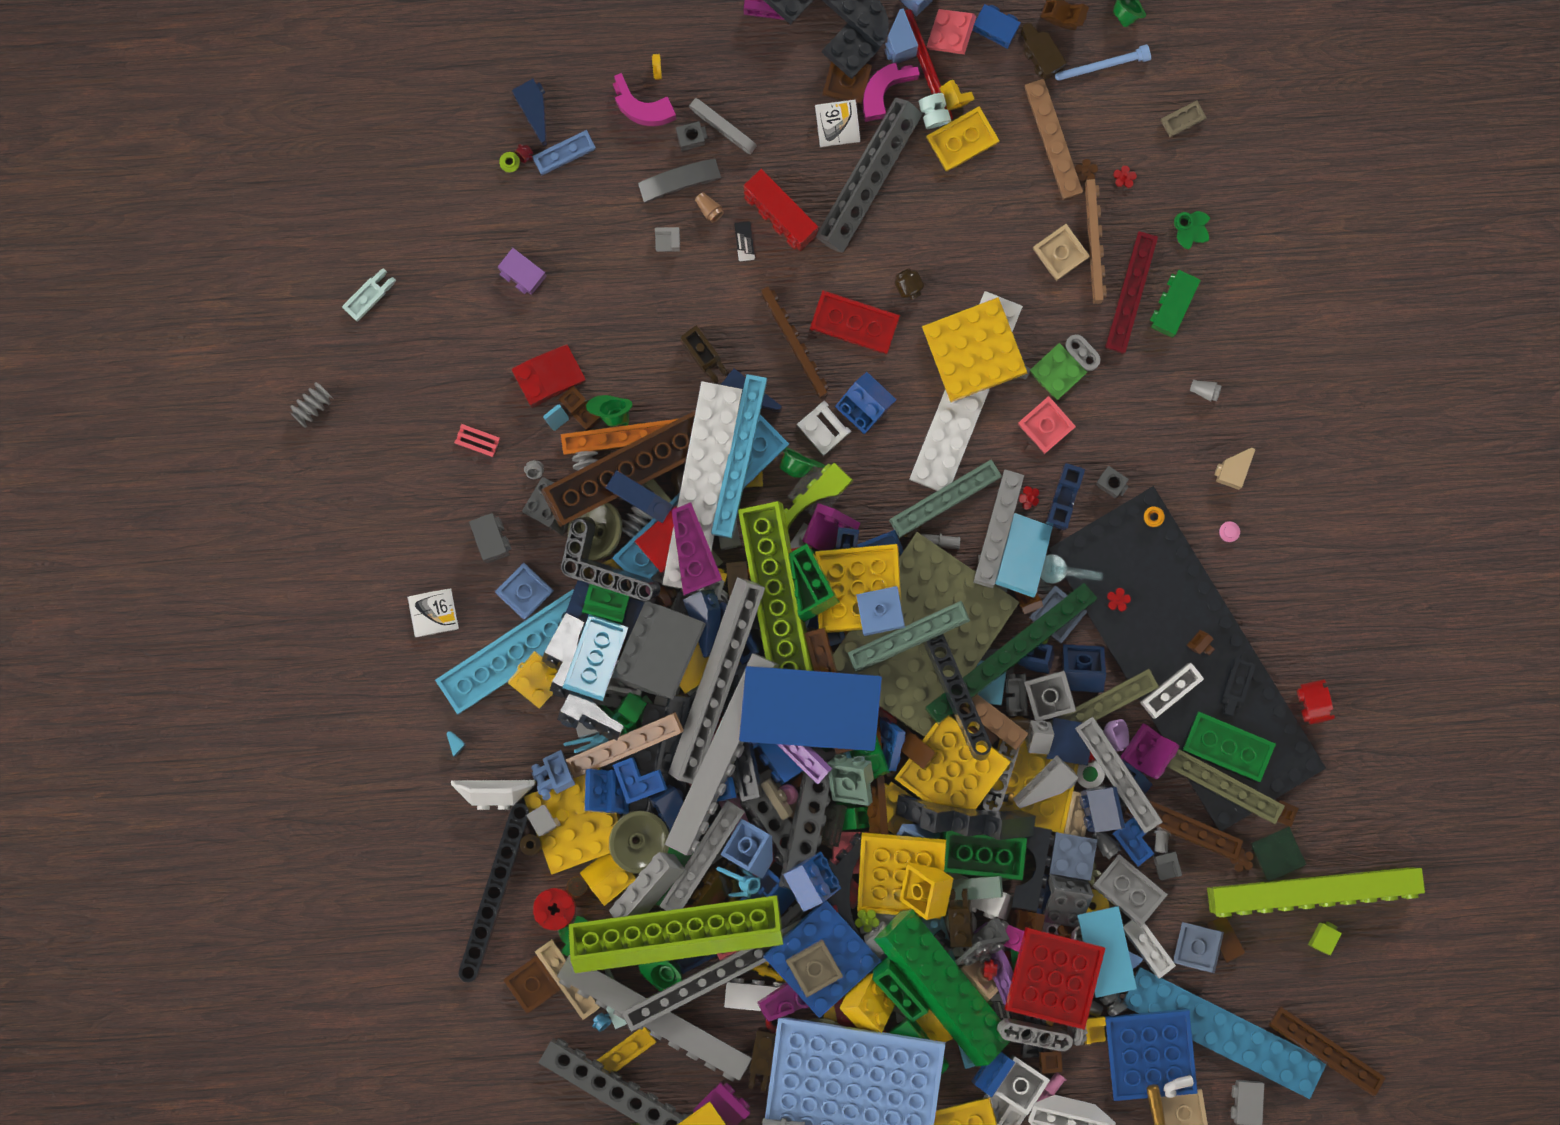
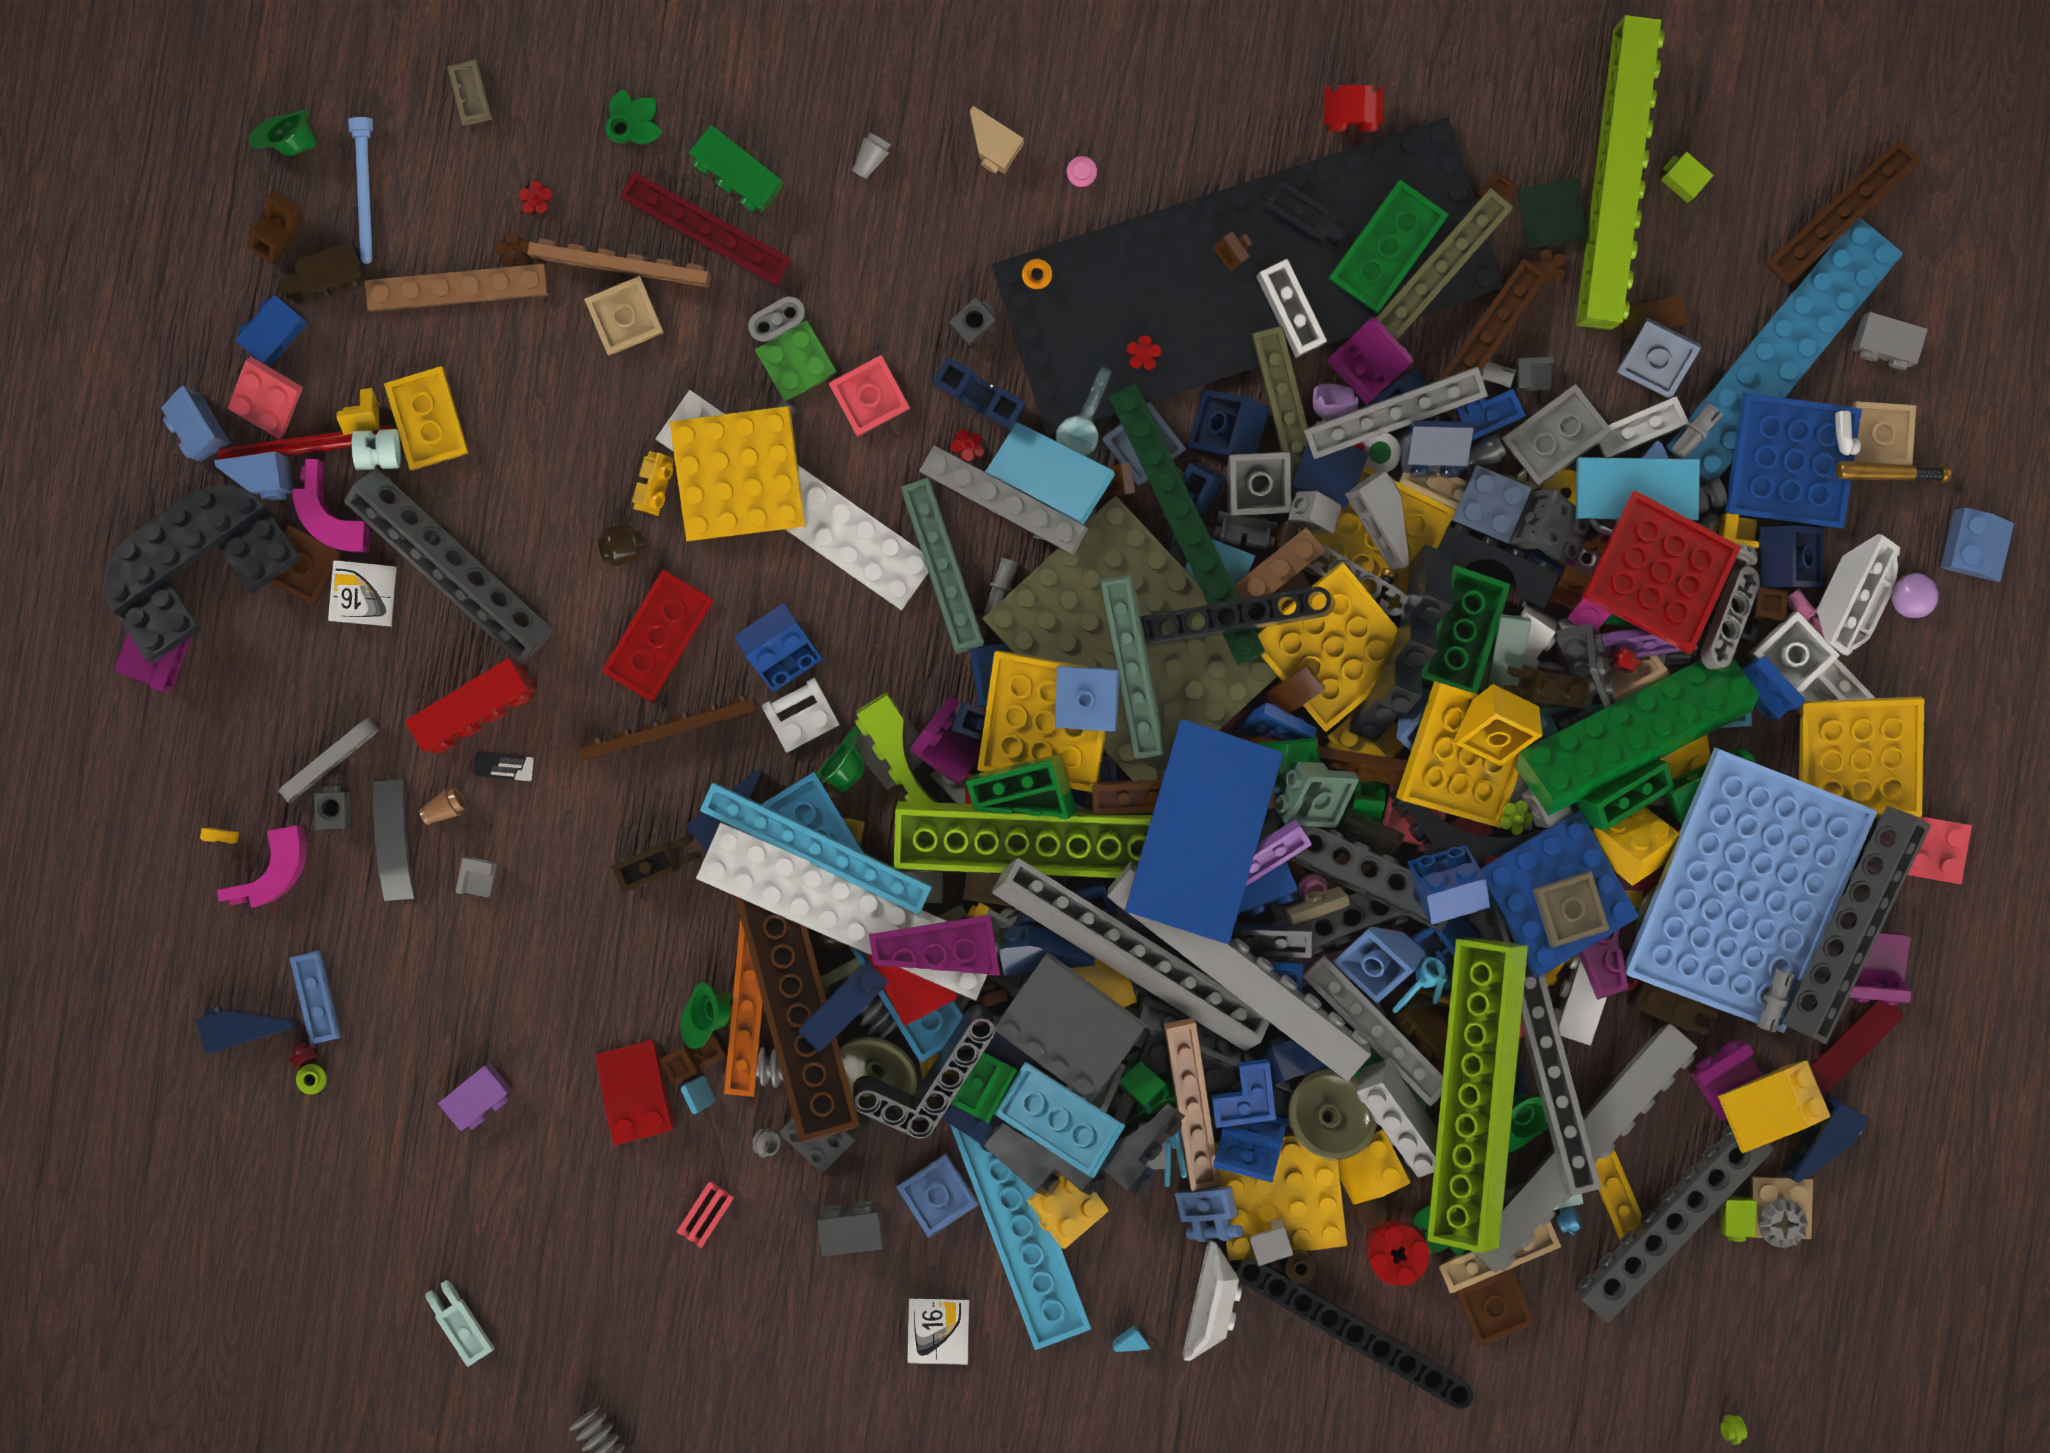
camera: 70 degrees left, 5 degrees up
(963, 297) = (651, 496): none -> yellow hinge
(1086, 1070) = (1792, 557): none -> dark blue slope
(1154, 983) = (1696, 431): none -> light grey axle

